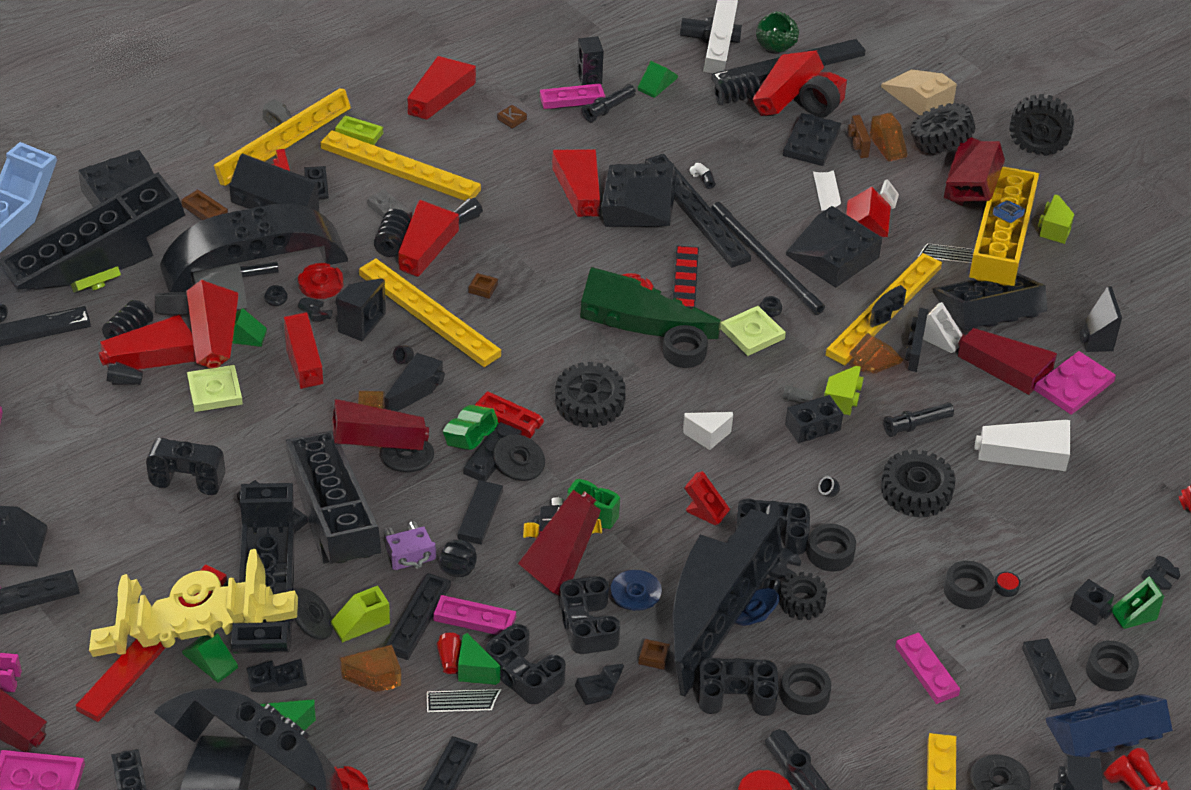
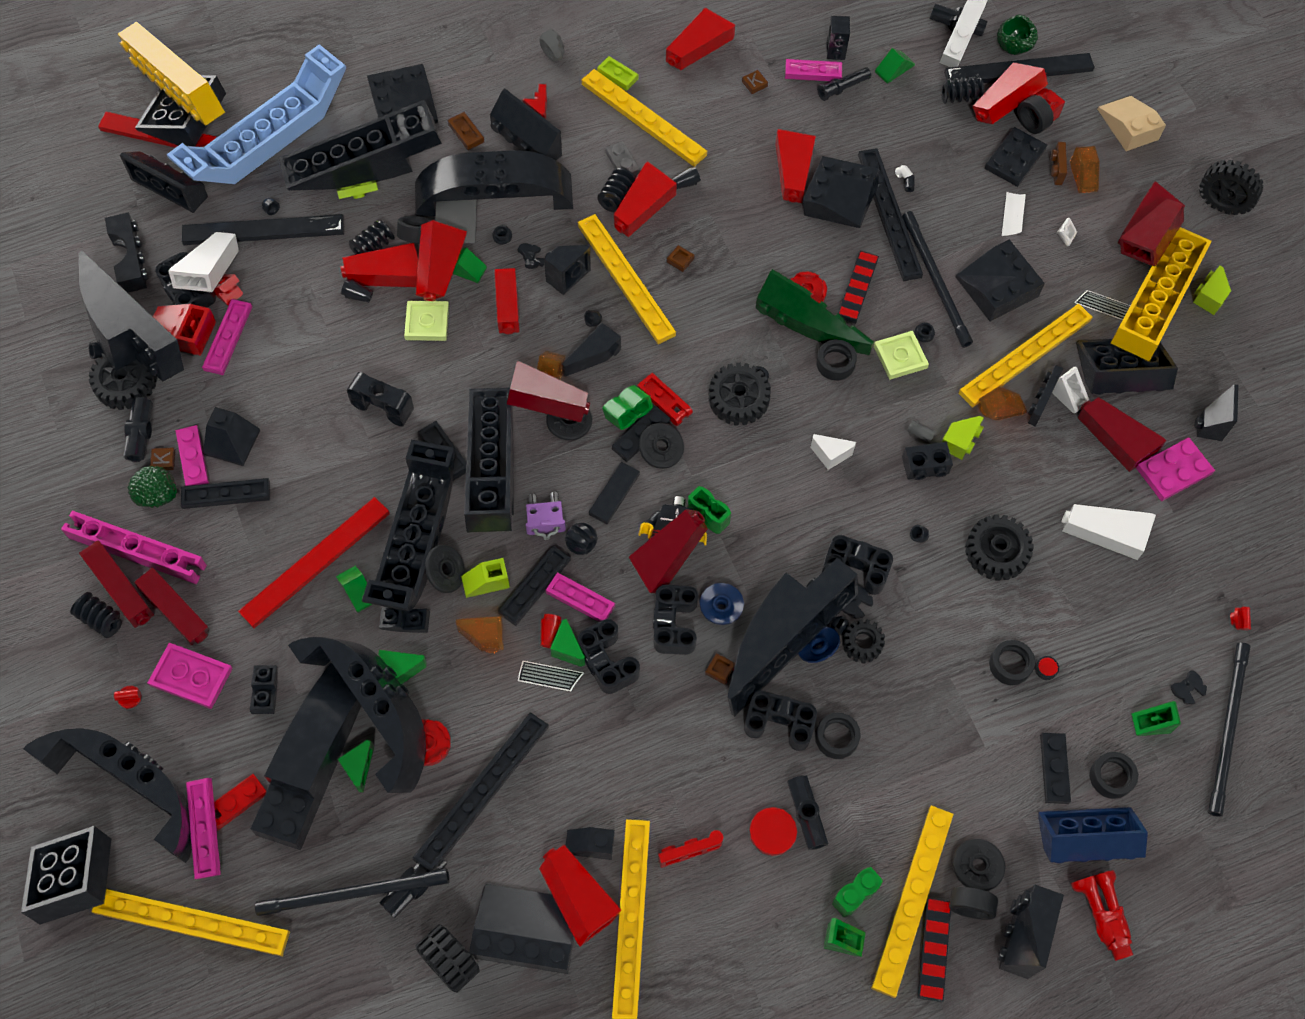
camera: 15 degrees right, 20 degrees up
(169, 619) = (377, 554): light yellow piece -> none
(259, 269) = (494, 204): black piece -> none
(286, 133) = (553, 66): yellow plate -> none
(318, 174) = (567, 121): black slope -> none
(320, 281) = (544, 226): red tile -> none
(601, 686) = (665, 690): black slope -> none
(707, 501) = (807, 525): red slope -> none
(833, 533) = (909, 582): black tyre -> none
(871, 211) = (1043, 249): red slope -> none
(889, 302) = (1031, 354): black slope -> none
(909, 421) = (1011, 479): black pin -> none
(927, 668) = (950, 737): dark pink plate -> none
(943, 127) = (1138, 171): black wheel -> none
(1008, 211) = (1168, 283): tile -> none
(1092, 602) = (1119, 698): black brick -> none

